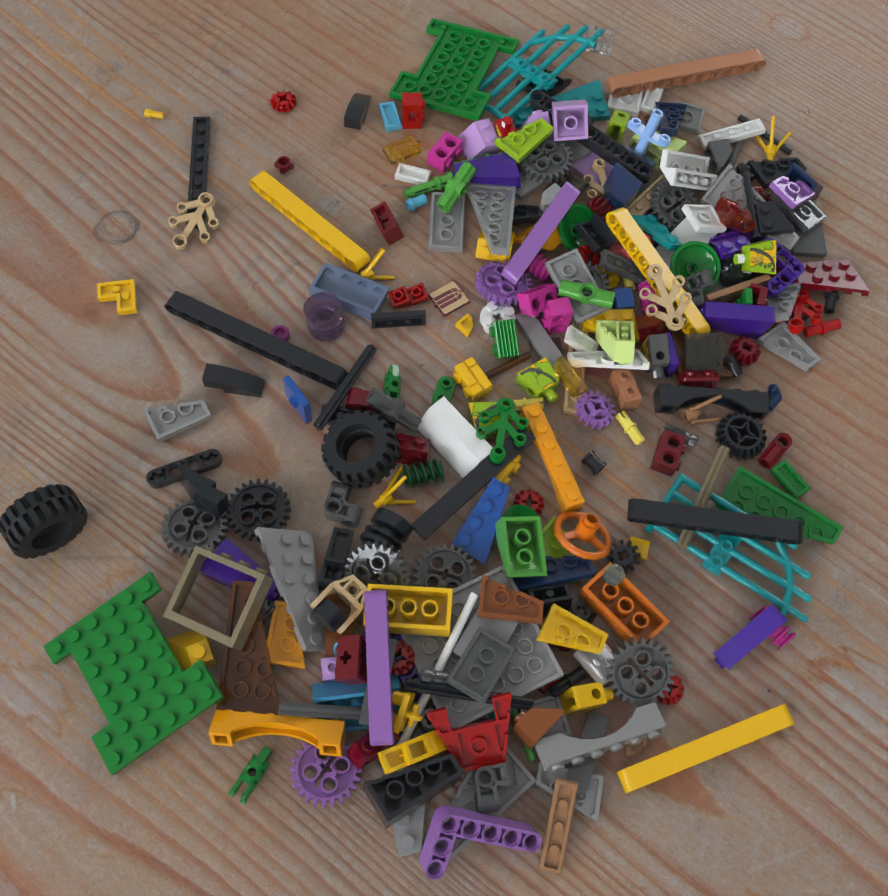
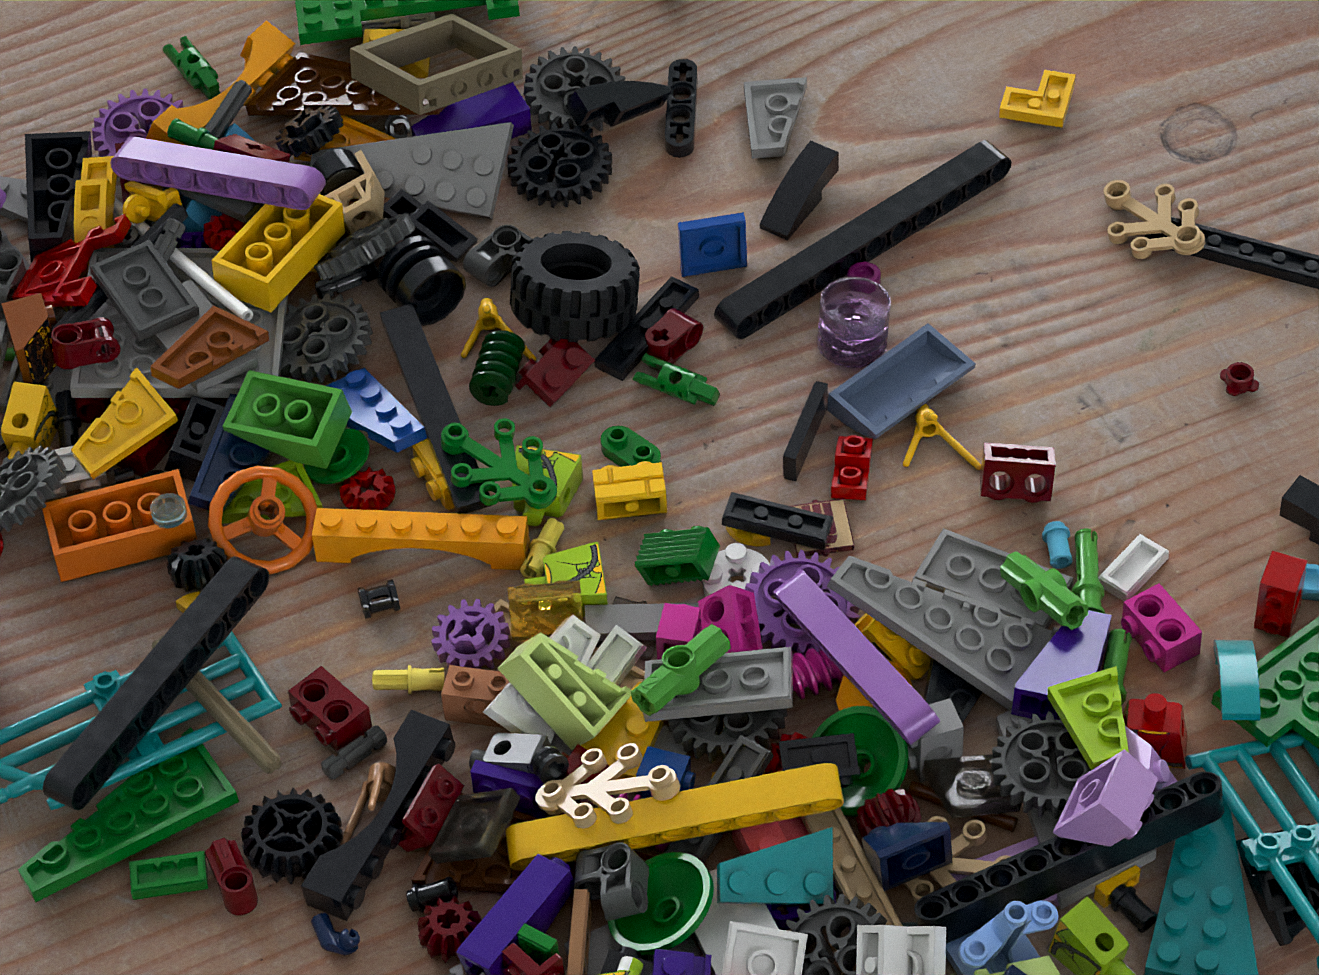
camera: 125 degrees right, 15 degrees down
(299, 661) = (309, 131): none -> black gear
(310, 221) = (1083, 374): yellow beam -> none
(342, 706) = (190, 135): none -> green pin
(344, 387) = (711, 321): black axle -> none
(393, 409) = (623, 352): dark grey piece -> none
(402, 149) = (1197, 562): clear yellow bracket -> none
(453, 437) = (543, 421): white slope -> none
(460, 310) = (777, 521): none -> black tile
(461, 111) = (1238, 679): none -> teal slope
(479, 139) = (1175, 686): lavender slope -> none
(493, 372) = (633, 545): reddish brown bar -> none
(531, 675) = (81, 343): none -> dark red piece
(663, 327) = (549, 764): none -> black bush

